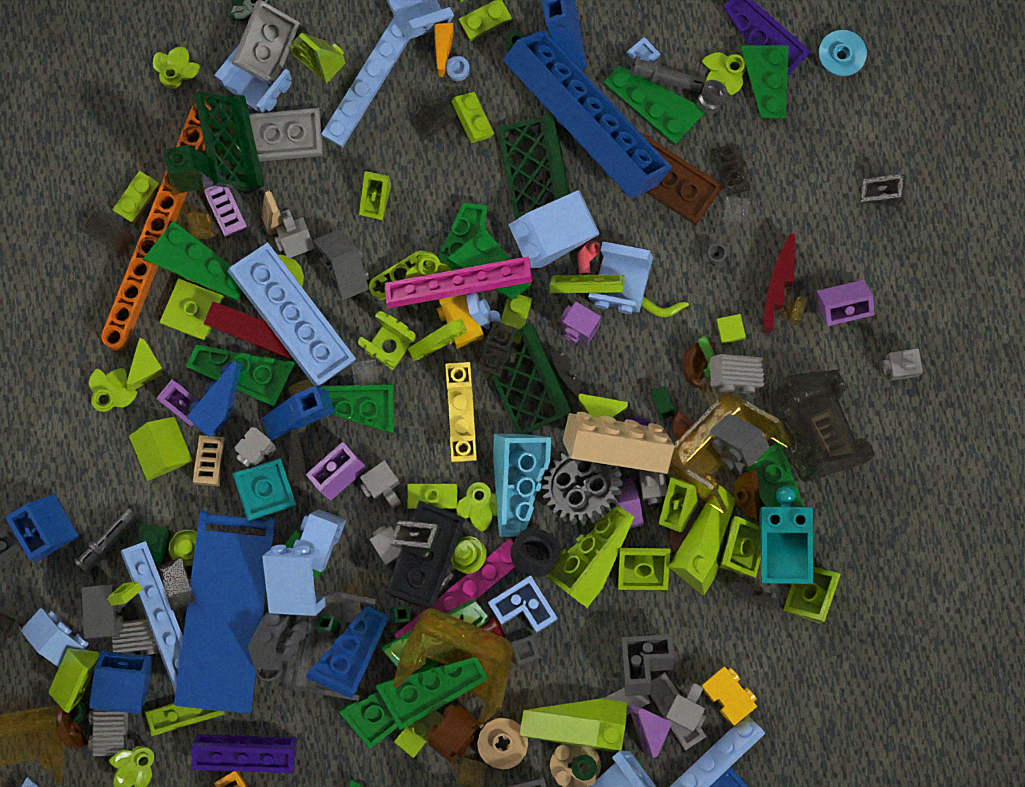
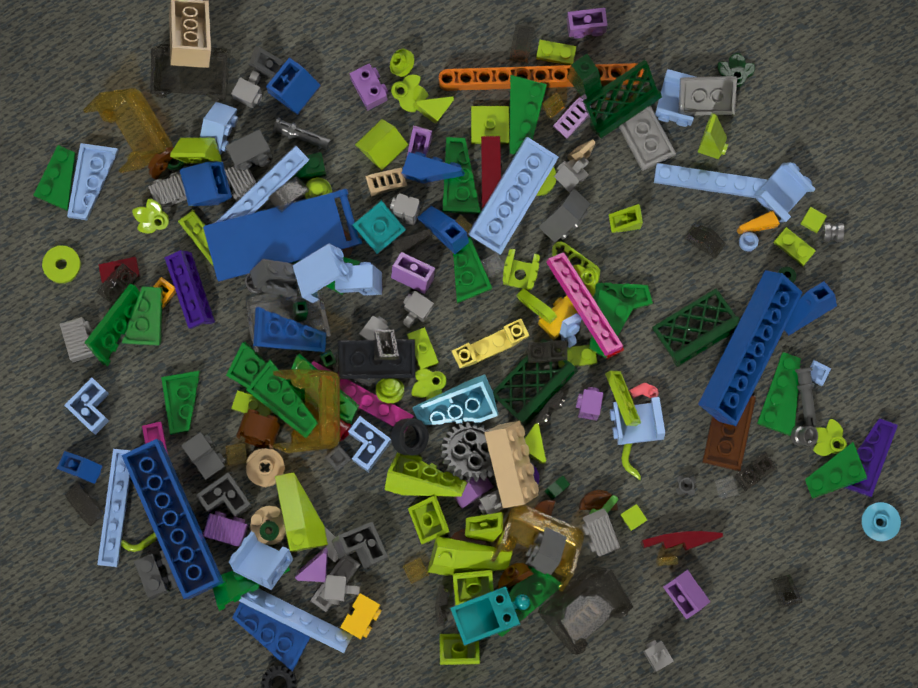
camera: 65 degrees right, 0 degrees up
(24, 586) = (248, 91): none -> light grey brick
(70, 383) = (402, 62): none -> lime plate
(82, 435) = (368, 86): none -> medium lavender brick
(116, 145) = (587, 22): none -> medium lavender brick
(124, 593) = (266, 160): lime tile -> none
(174, 64) = (666, 39): lime plate -> none
(472, 117) = (715, 266): lime plate -> none
(554, 229) = (652, 357): light blue slope -> none
(697, 609) = (415, 571): none -> clear yellow tile

